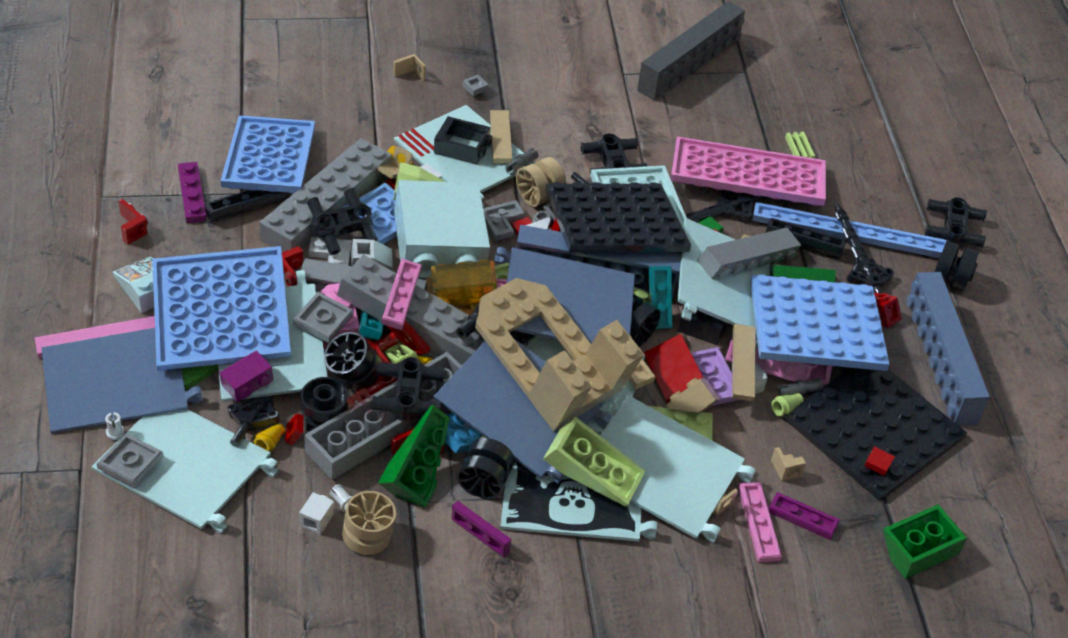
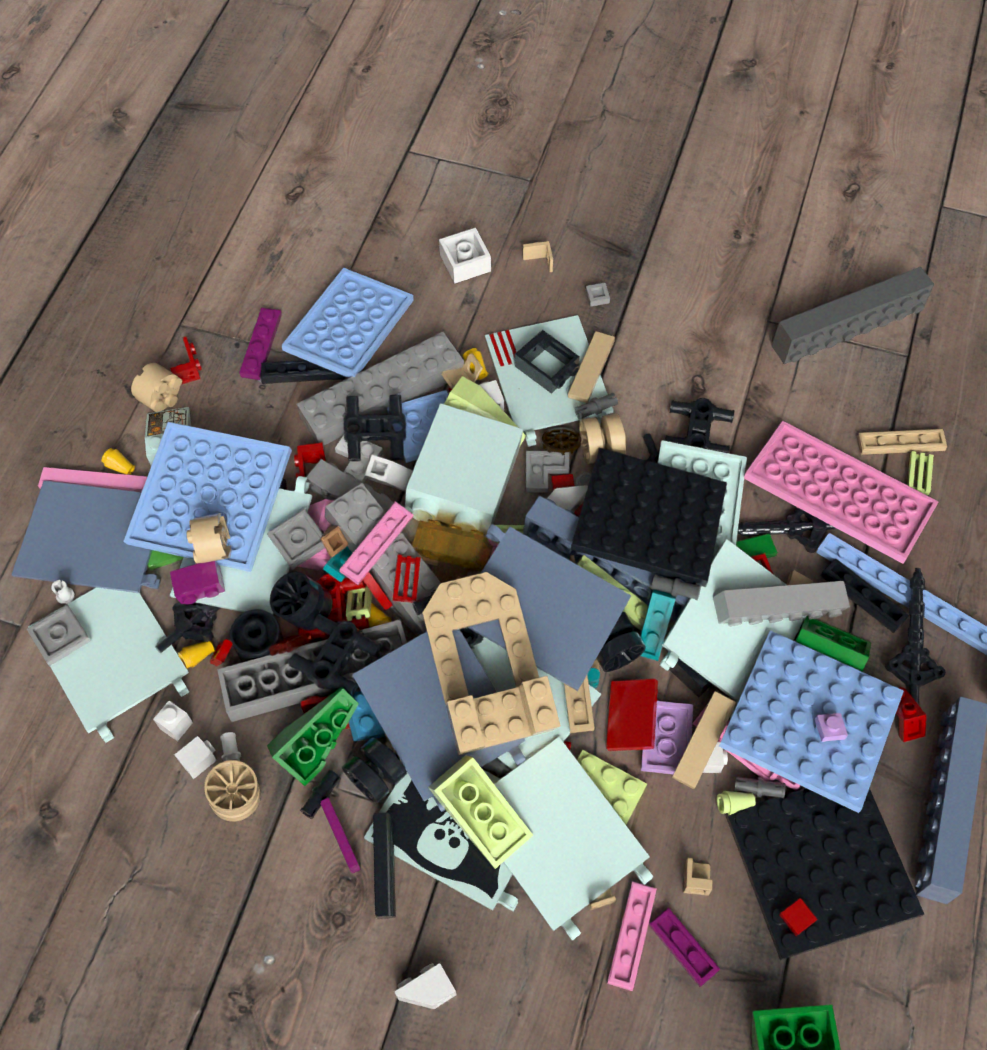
camera: 30 degrees right, 15 degrees up
(106, 314) = (117, 461): none -> yellow cone
(116, 244) = (156, 387): none -> tan brick
(248, 330) = (209, 538): none -> tan brick
(280, 492) = (173, 720): none -> white brick
(345, 80) = (465, 255): none -> white brick
(359, 306) = (333, 540): none -> medium nougat slope
(444, 314) = (408, 560): none -> red tile
(444, 506) = (320, 793): none -> black pin
(505, 194) = (560, 441): none -> dark brown wheel
(531, 537) = (384, 866): none -> black brick
(619, 613) = (428, 989): none -> white slope
(667, 257) = (676, 587): none -> dark grey pin
(695, 398) = (631, 765): tan slope -> none
(774, 129) = (902, 441): none -> tan tile
(837, 318) = (831, 727): none -> lavender plate

